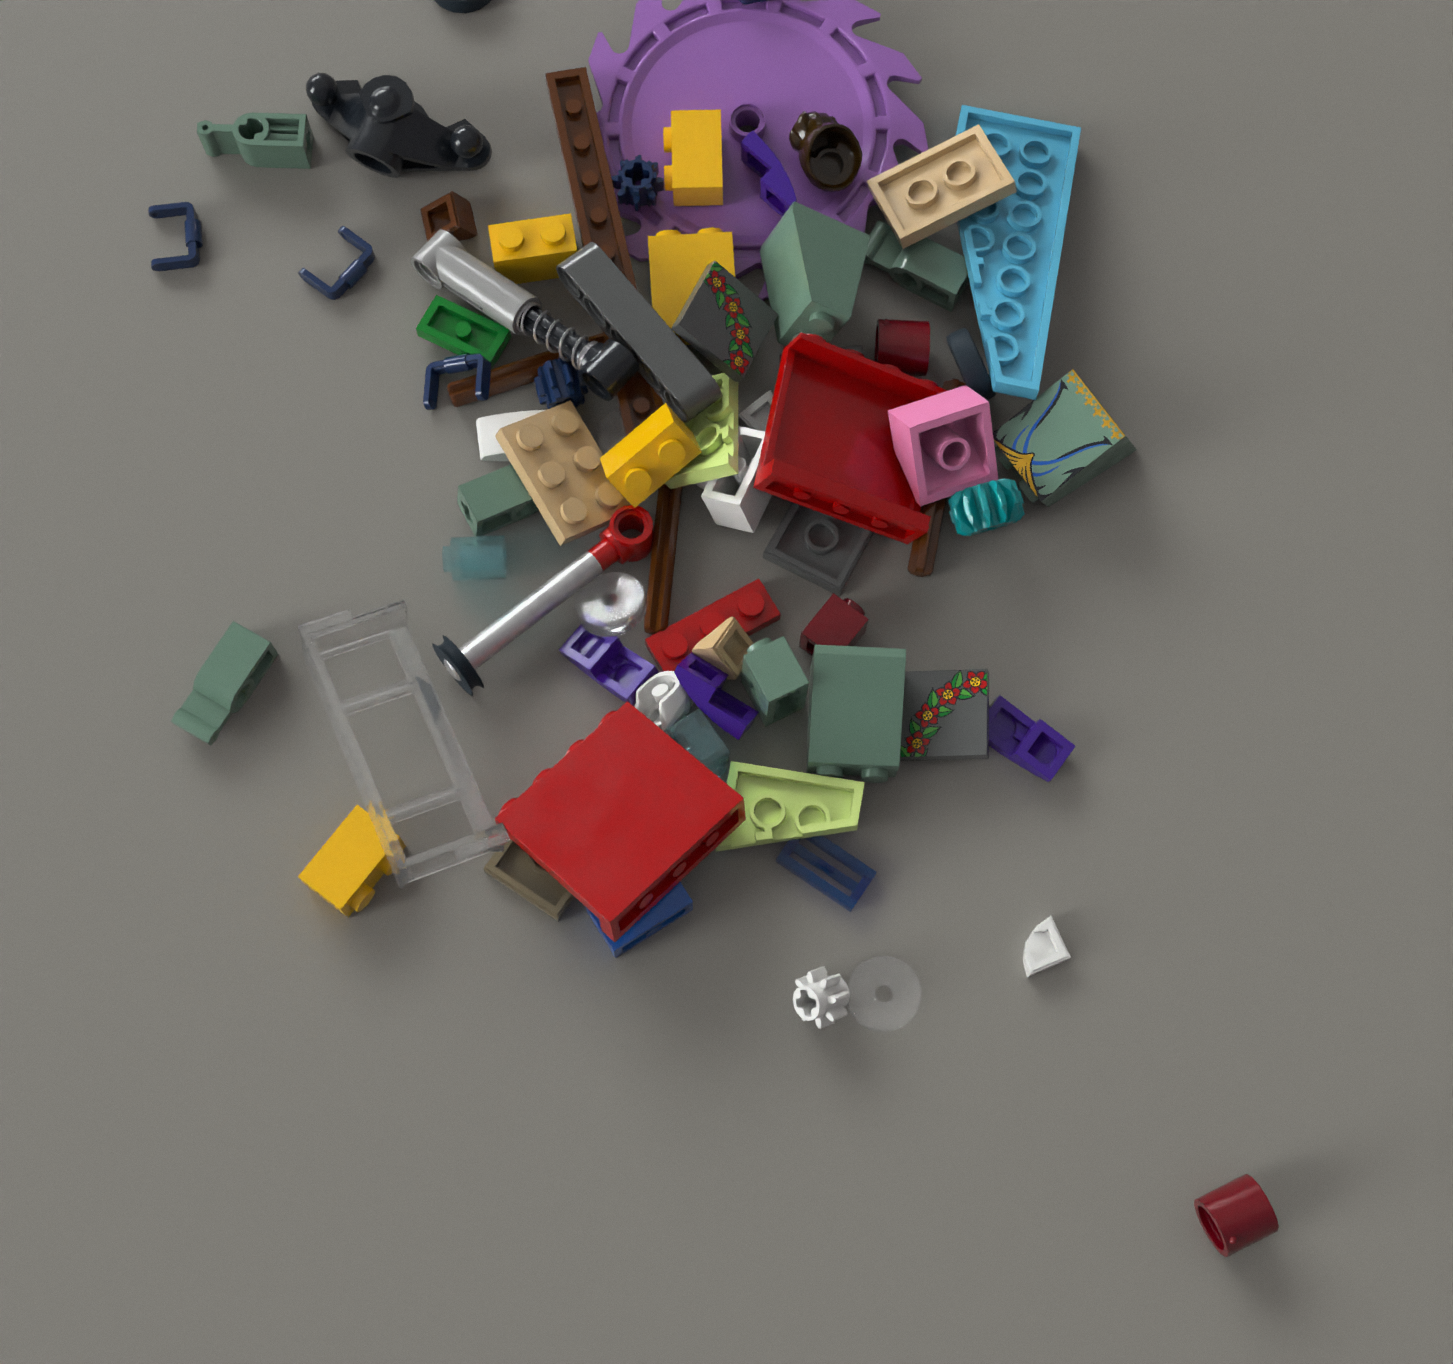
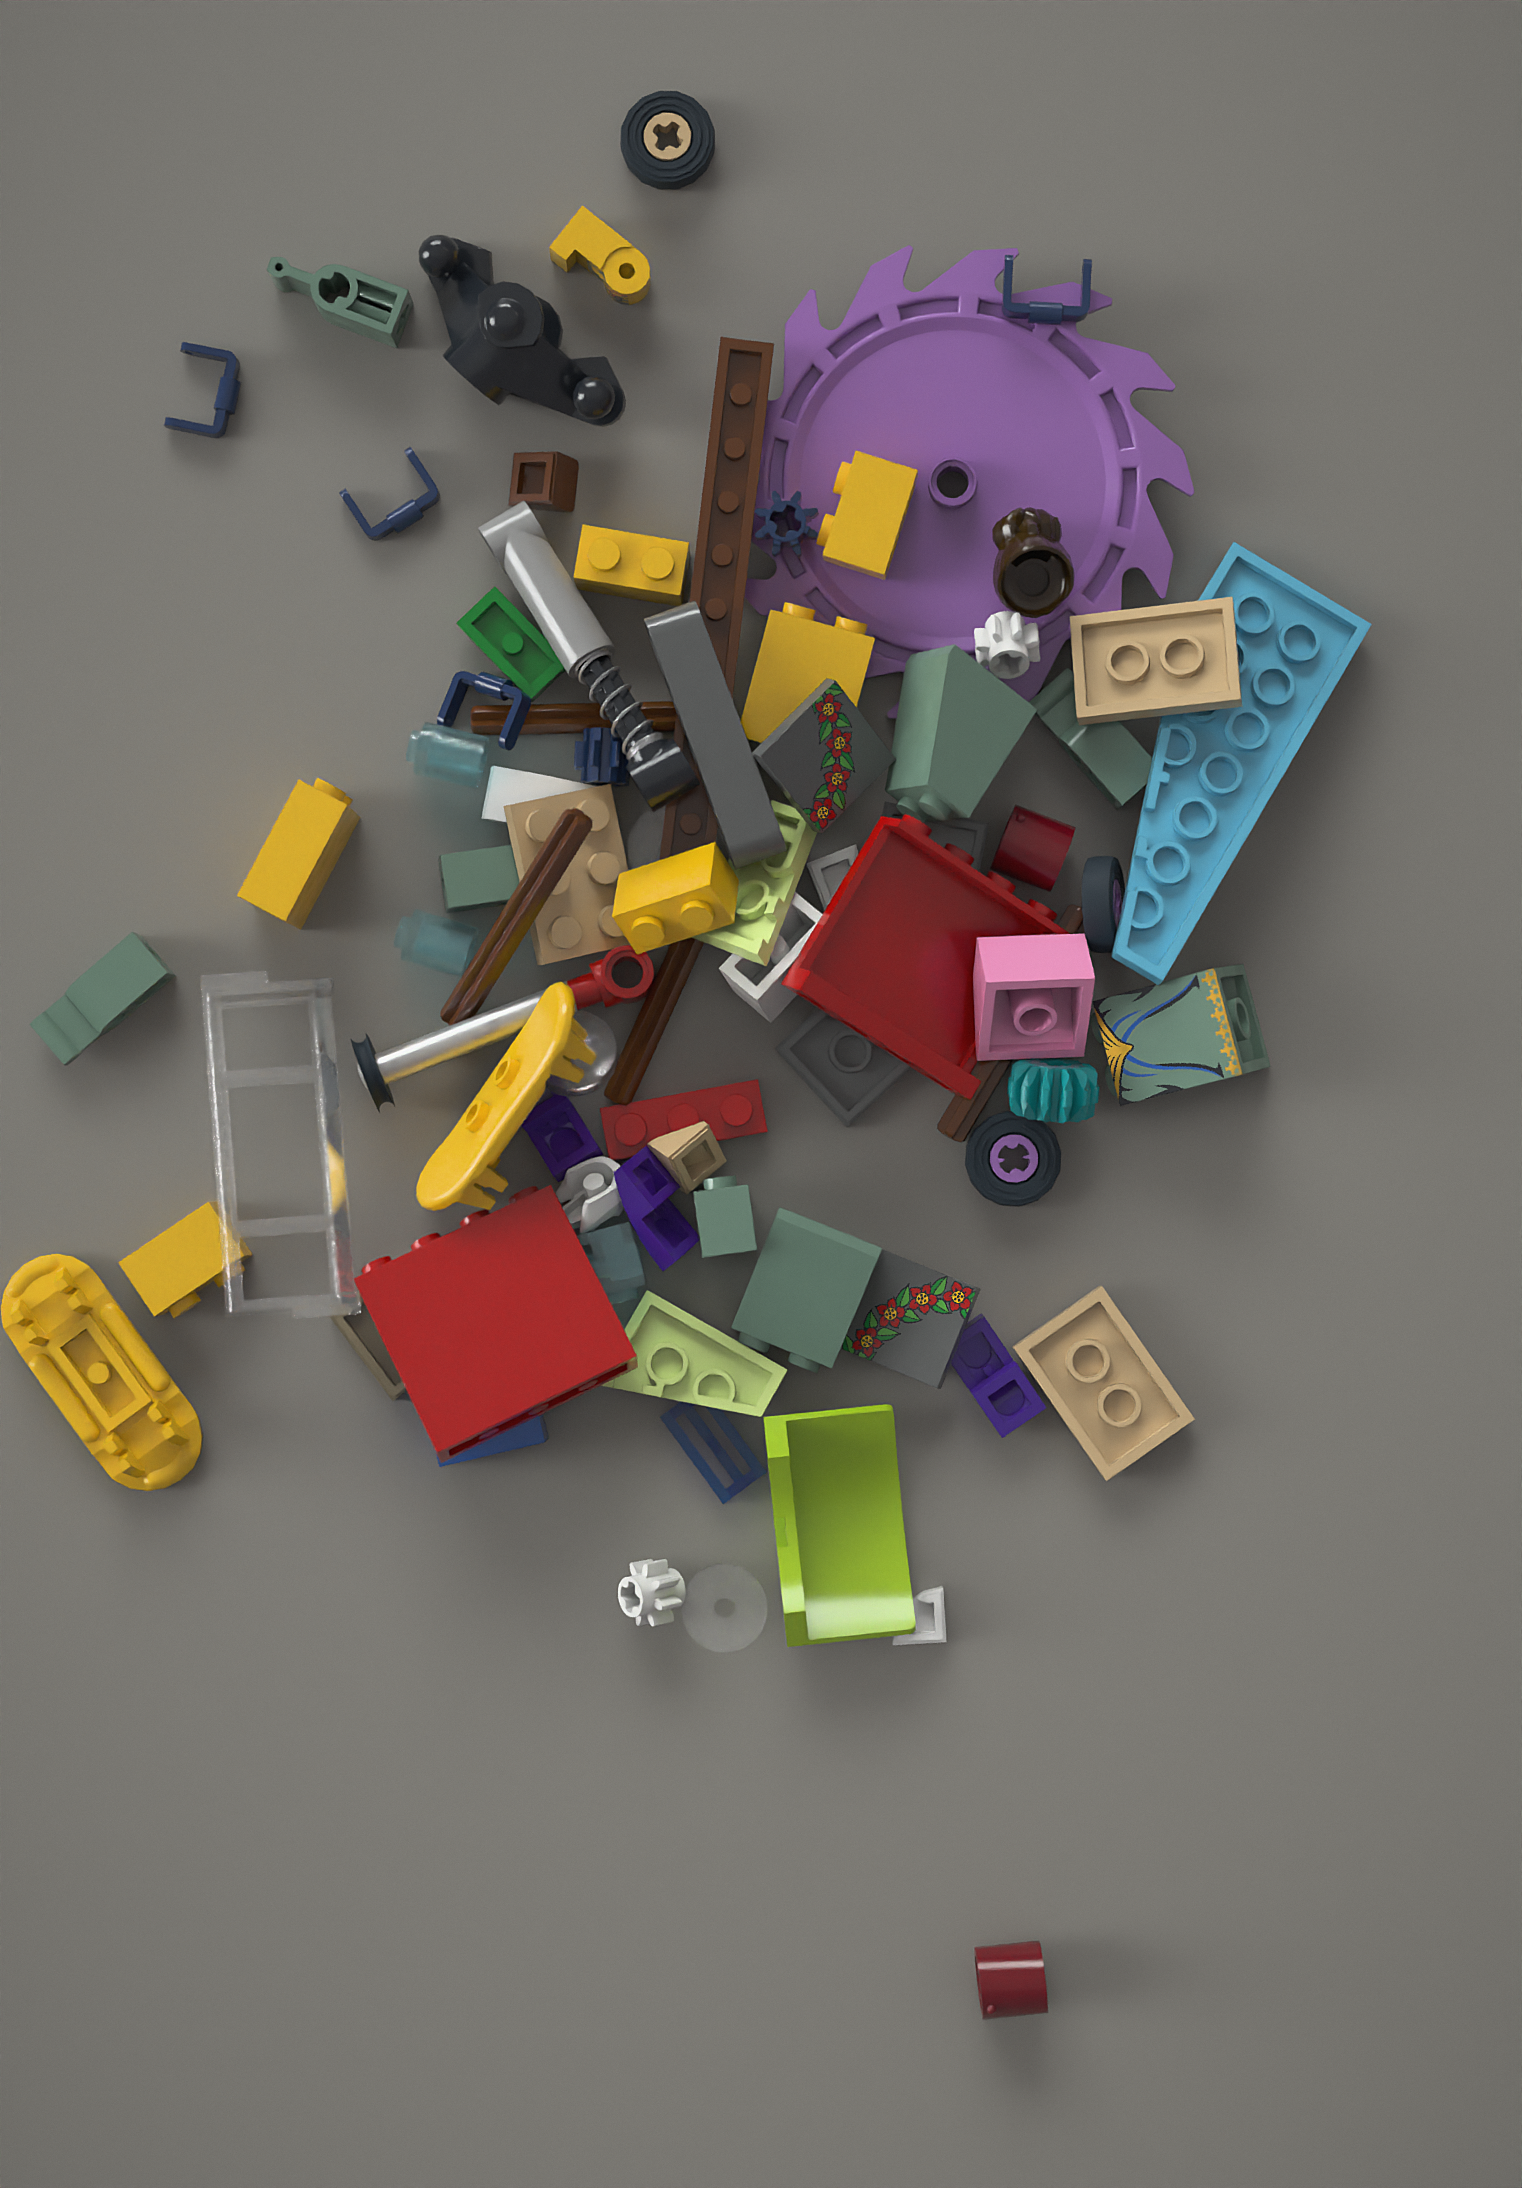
camera: 25 degrees right, 15 degrees up
(311, 979) = (101, 1373): none -> yellow piece
(348, 520) = (300, 852): none -> yellow brick
(440, 421) = (448, 754): none -> clear light blue brick
(442, 60) = (603, 254): none -> yellow leg
(533, 506) = (517, 916): none -> reddish brown axle
(571, 646) = (503, 1103): none -> yellow piece
(774, 182) = (954, 586): dark purple slope -> none
(832, 203) = (1007, 644): none -> white gear
(836, 624) = (822, 1175): dark red brick -> none
(949, 891) = (839, 1525): none -> lime panel
(960, 557) = (1016, 1186): none -> black bush
(1111, 714) = (1103, 1383): none -> tan plate

